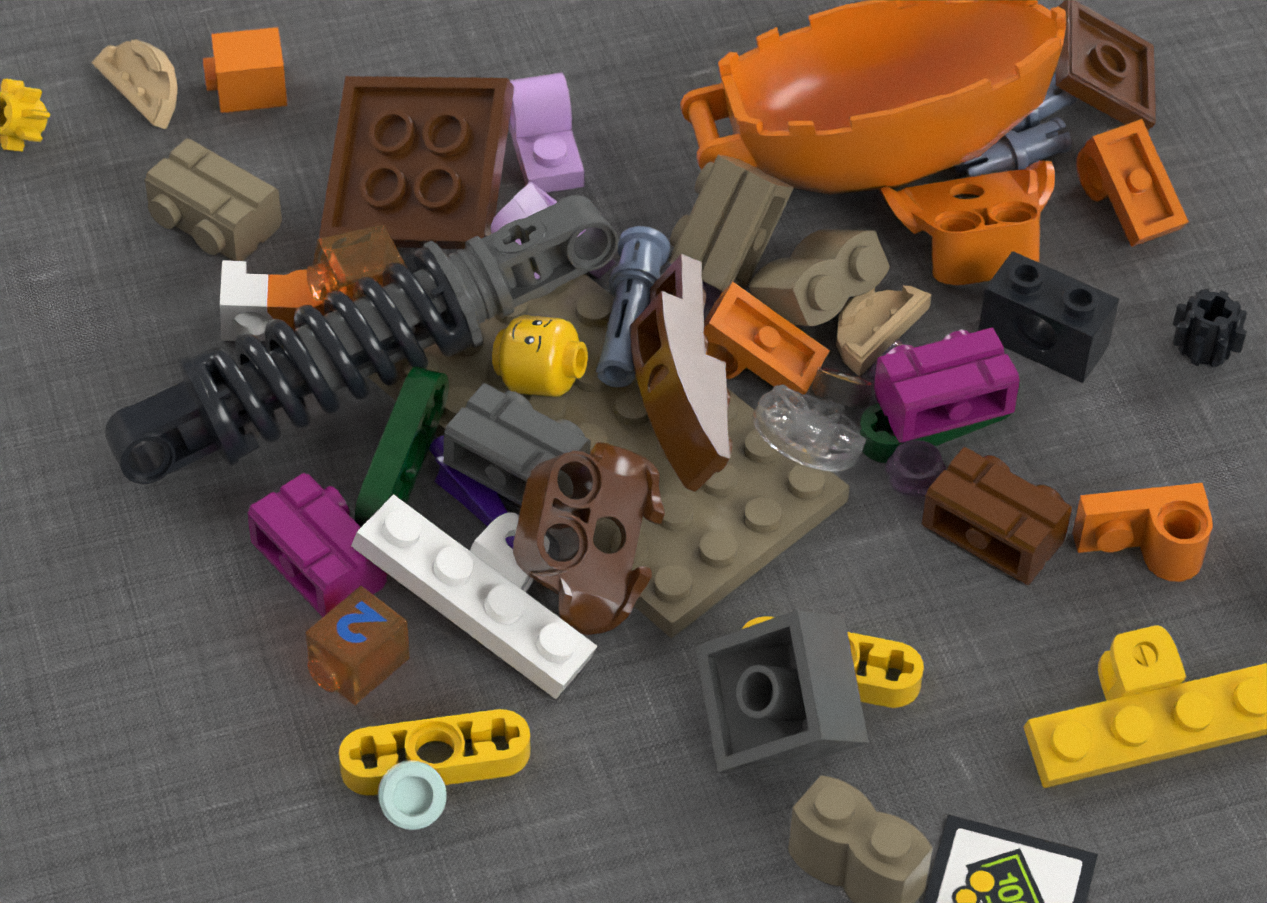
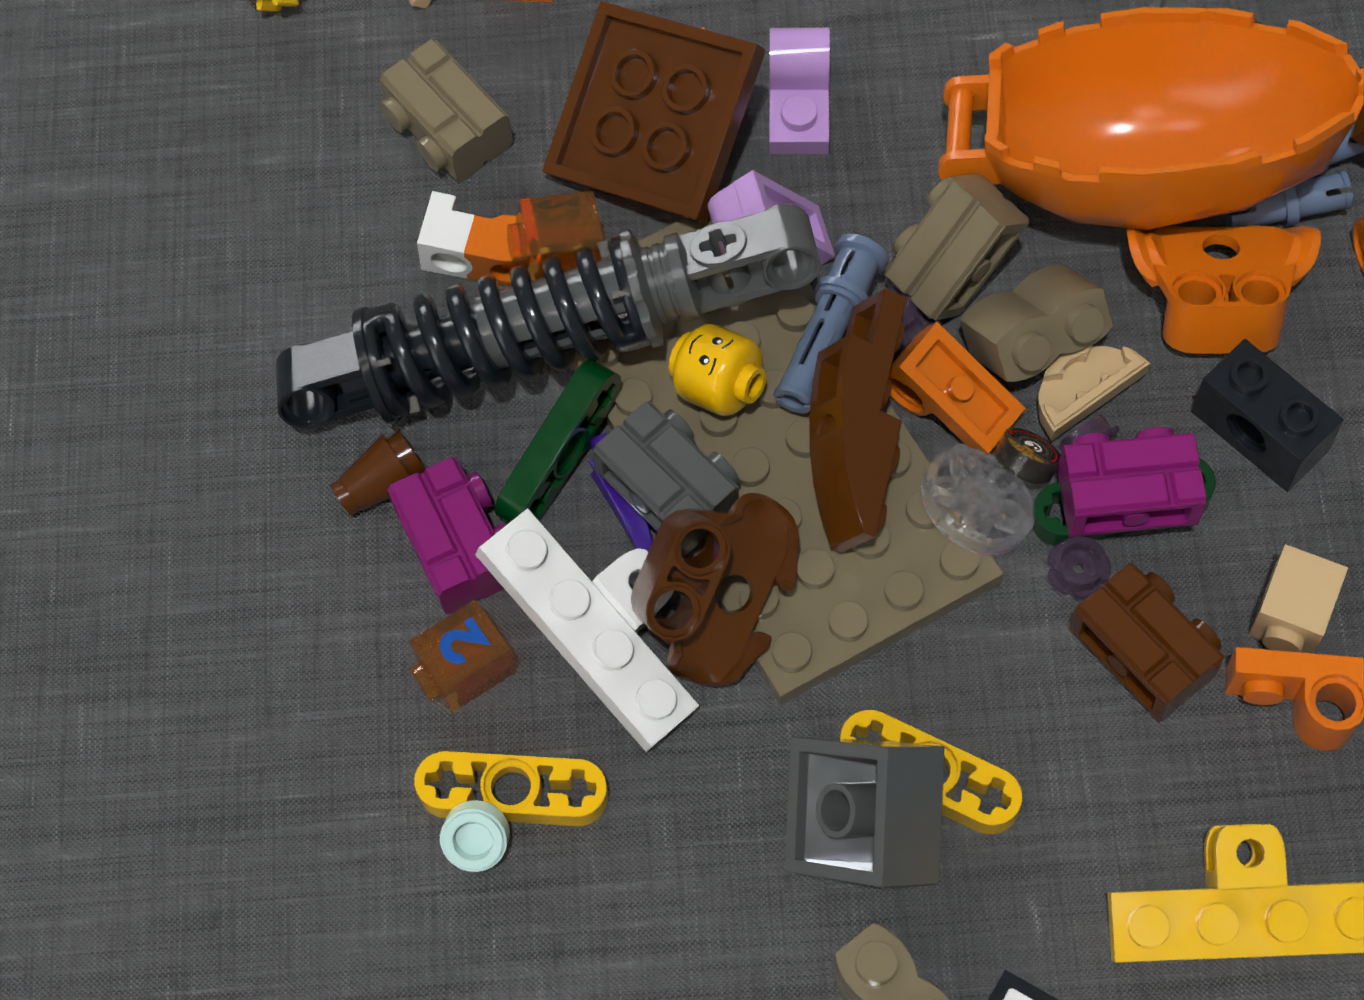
camera: 20 degrees right, 15 degrees up
(226, 509) = (373, 472): none -> reddish brown cone
(1122, 451) = (1298, 601): none -> tan brick

